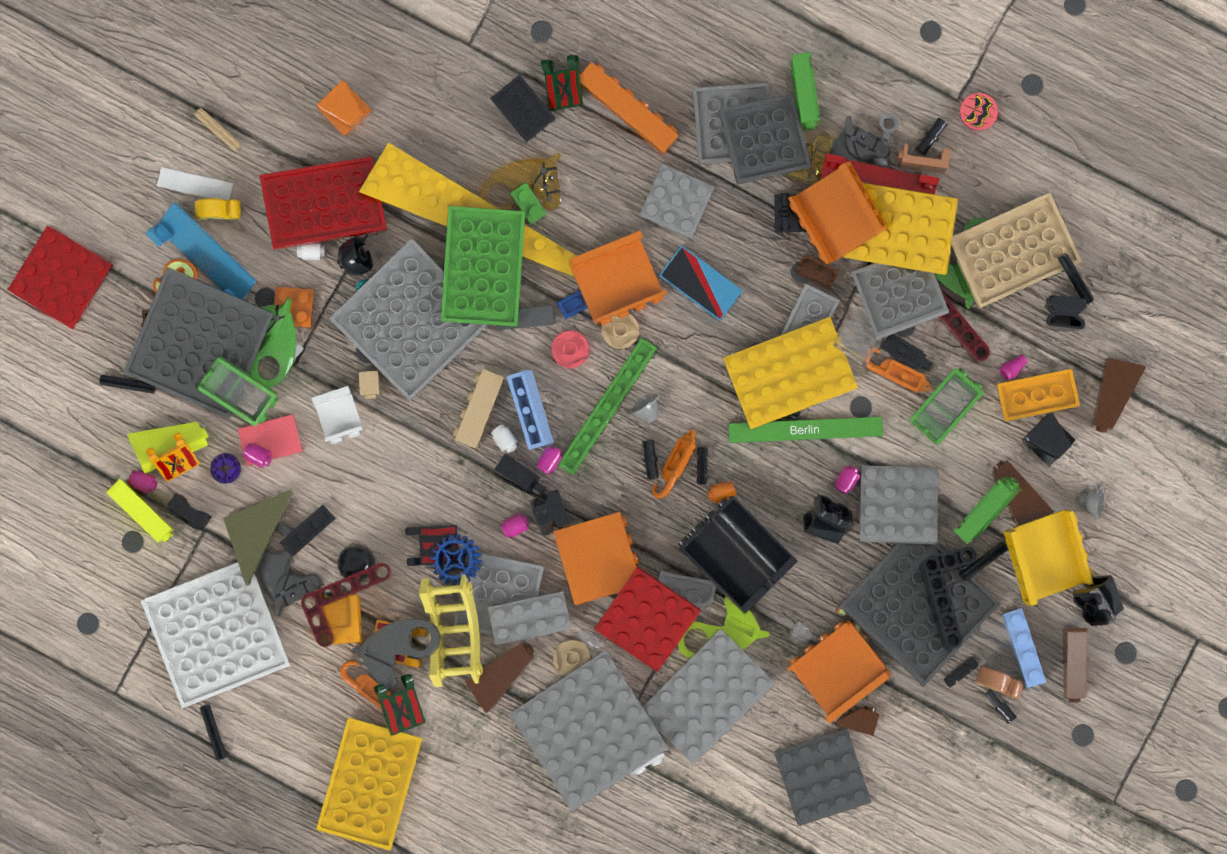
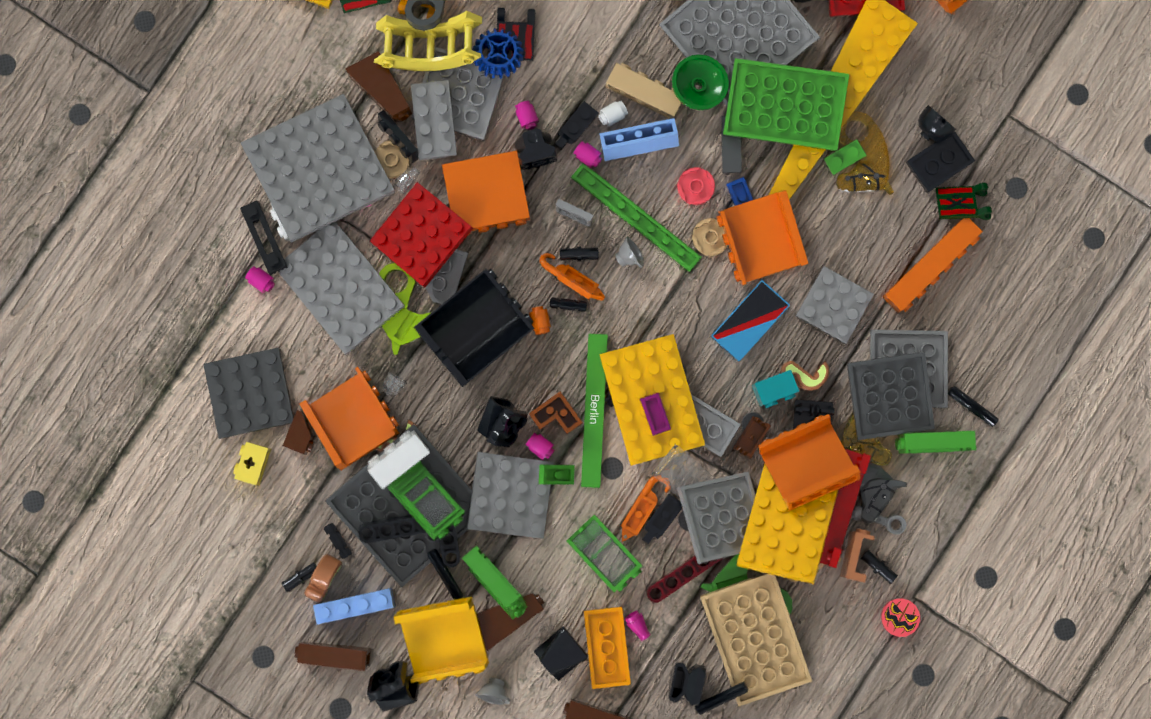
camera: 90 degrees right, 0 degrees up
(459, 345) = (706, 73): none -> green dish
(488, 116) = (934, 125): none -> black cylinder
(550, 653) = (397, 137): none -> black plate
(611, 467) = (574, 213): none -> light grey tile
(688, 764) = (273, 261): none -> black container
(707, 777) = (260, 279): none -> dark pink brick
(755, 224) = (805, 380): none -> animal
(764, 57) = (973, 406): none -> black axle
(768, 253) = (775, 388): none -> teal brick
(805, 367) = (655, 414): none -> magenta tile
(809, 466) = (556, 409): none -> dark orange brick
(873, 460) = (556, 474): none -> bright green plate
(877, 615) = (397, 458): none -> white brick
(904, 763) = (260, 457): none -> light yellow brick
(914, 583) = (427, 501): none -> bright green door

